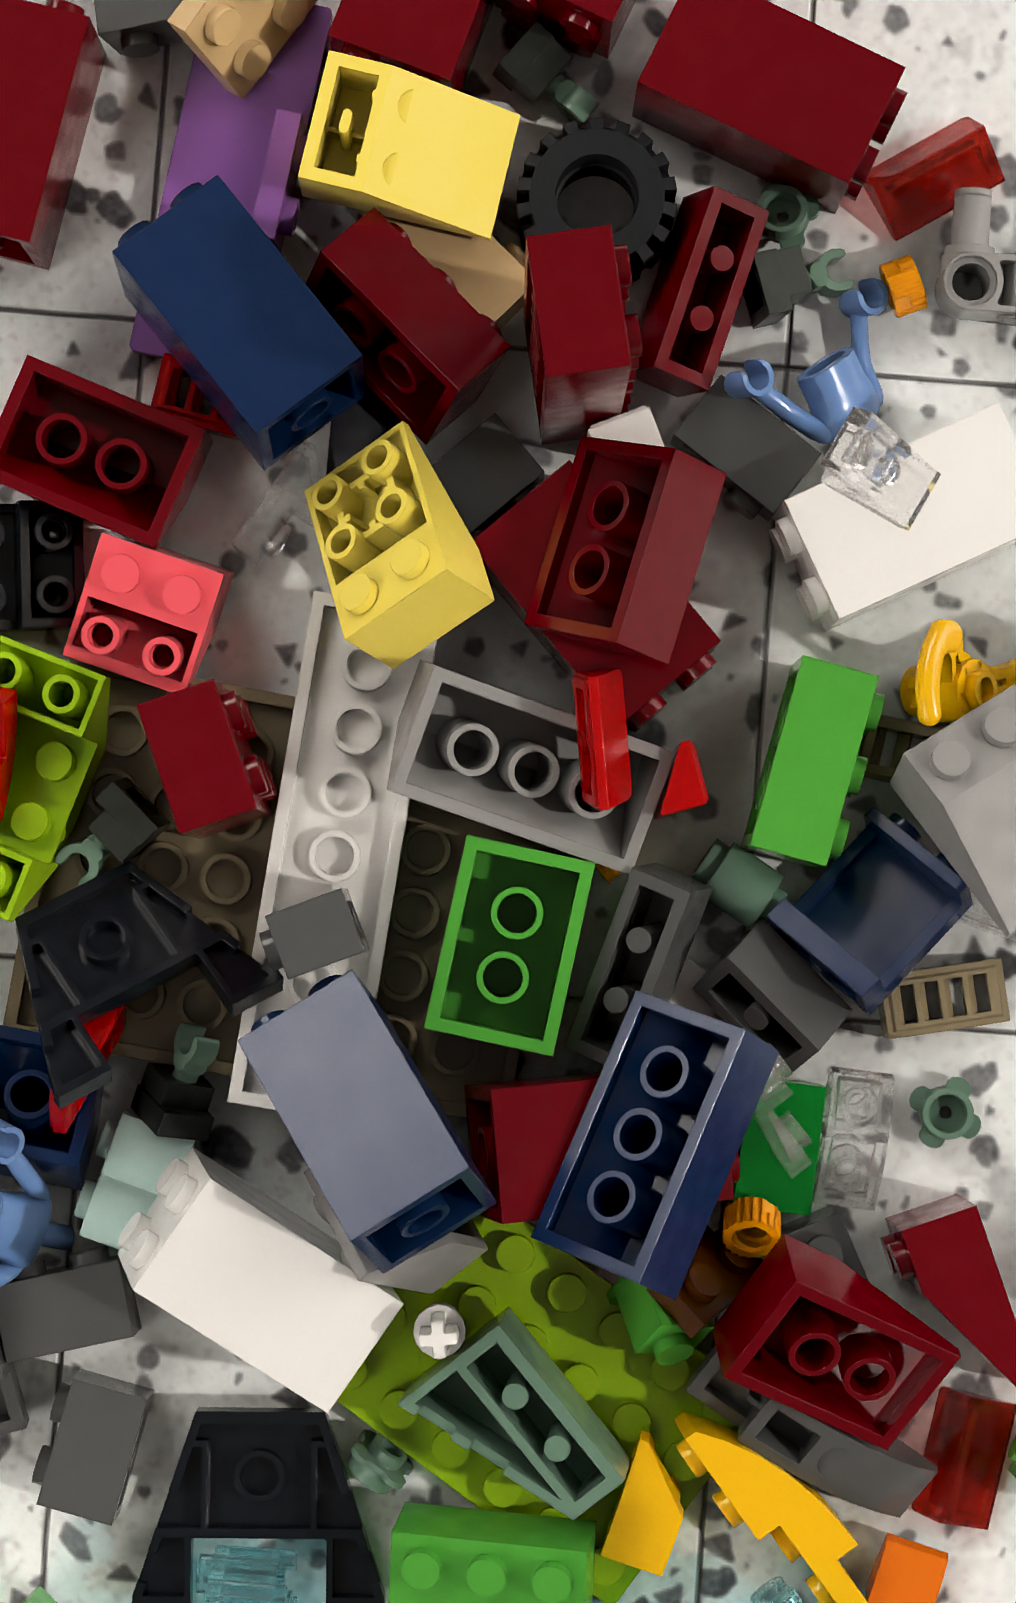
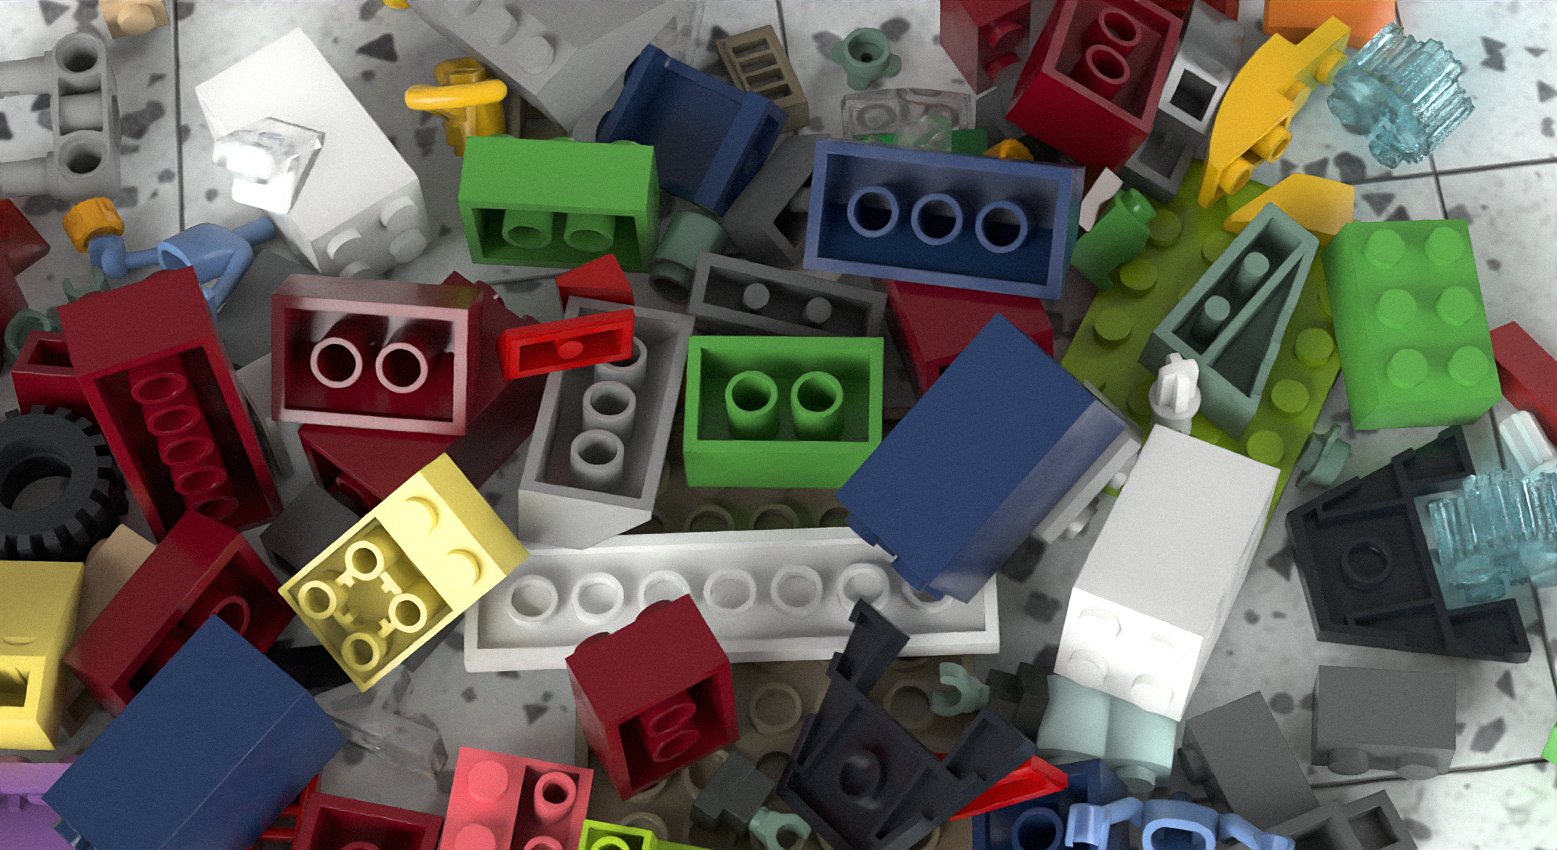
camera: 95 degrees left, 25 degrees down
(313, 934) = (808, 559): dark grey brick -> none

